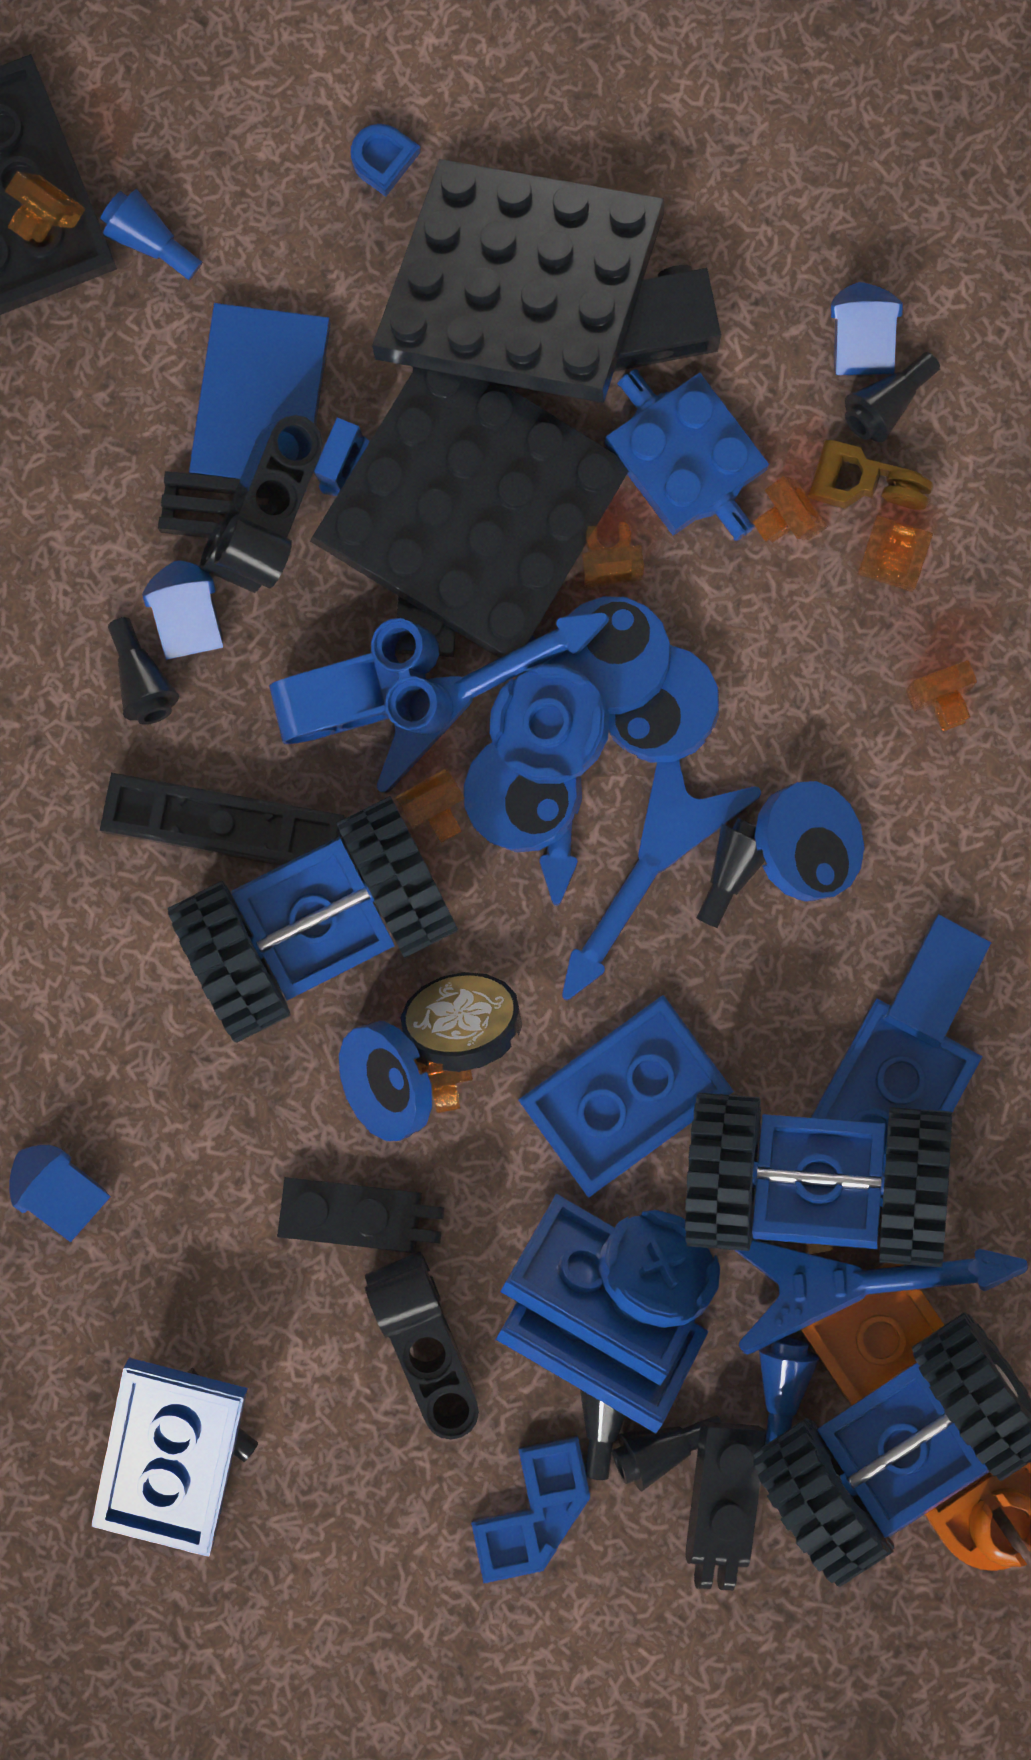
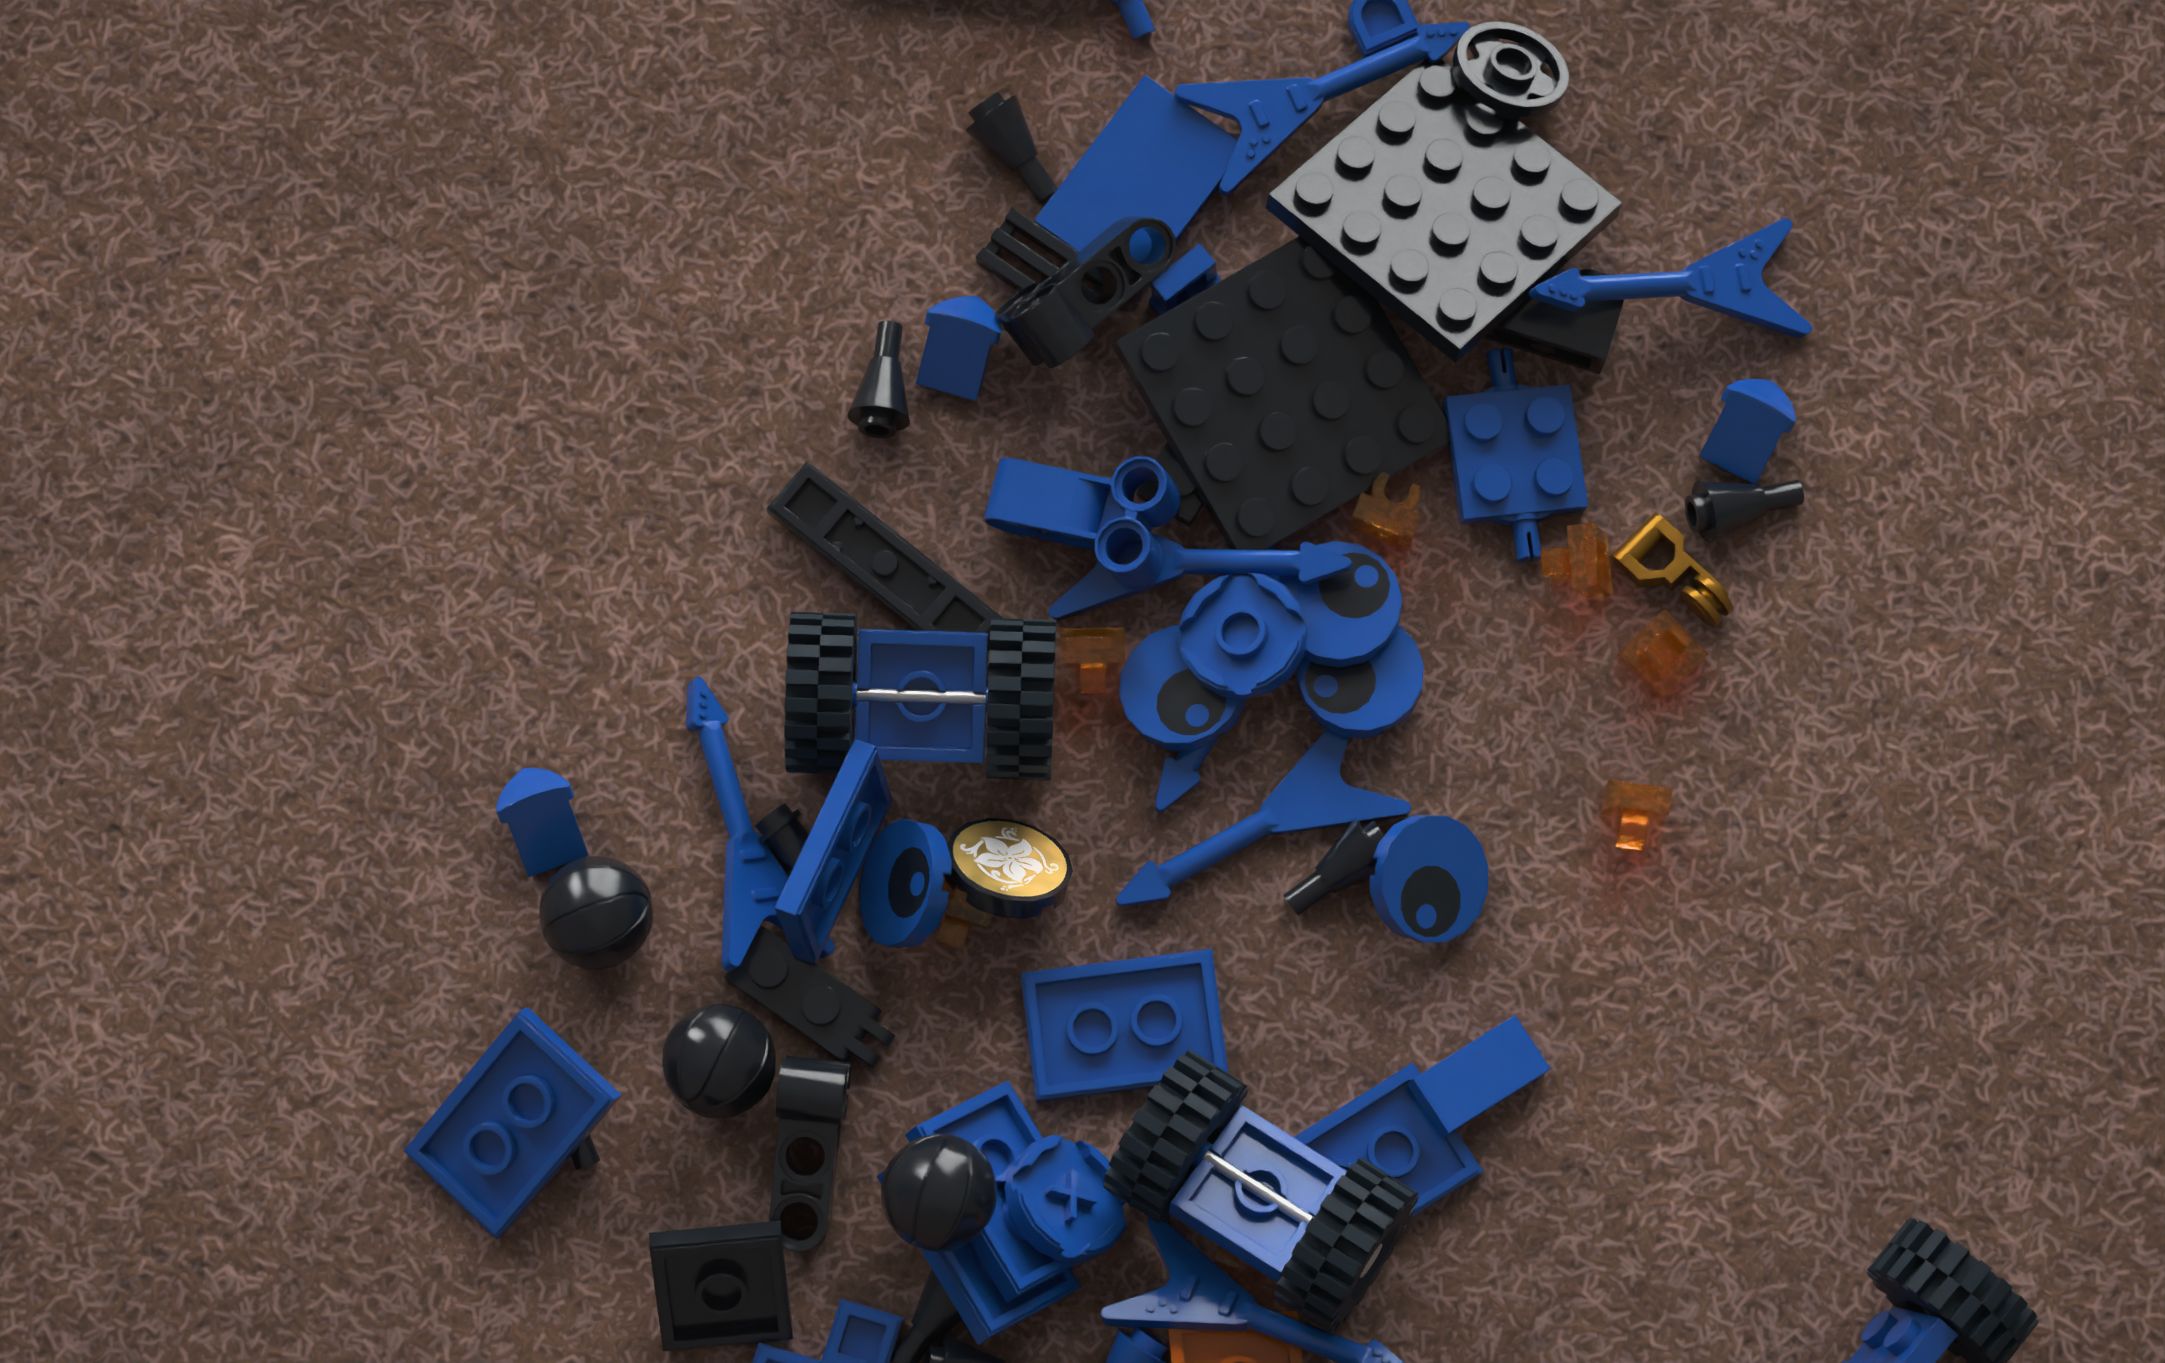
camera: 20 degrees right, 5 degrees down
(127, 414) = (1005, 134): none -> black cone
(142, 1244) = (596, 912): none -> black piece
(257, 1142) = (751, 870): none -> blue piece
(274, 1096) = (783, 834): none -> black pin
(312, 1088) = (834, 852): none -> blue tile
(312, 1312) = (719, 1061): none -> black piece
(338, 272) = (1277, 108): none -> blue piece
(415, 1497) = (721, 1285): none -> black tile
(511, 143) = (1510, 74): none -> black wheel
(559, 1333) = (939, 1192): none -> black piece
(777, 222) = (1722, 282): none -> blue piece

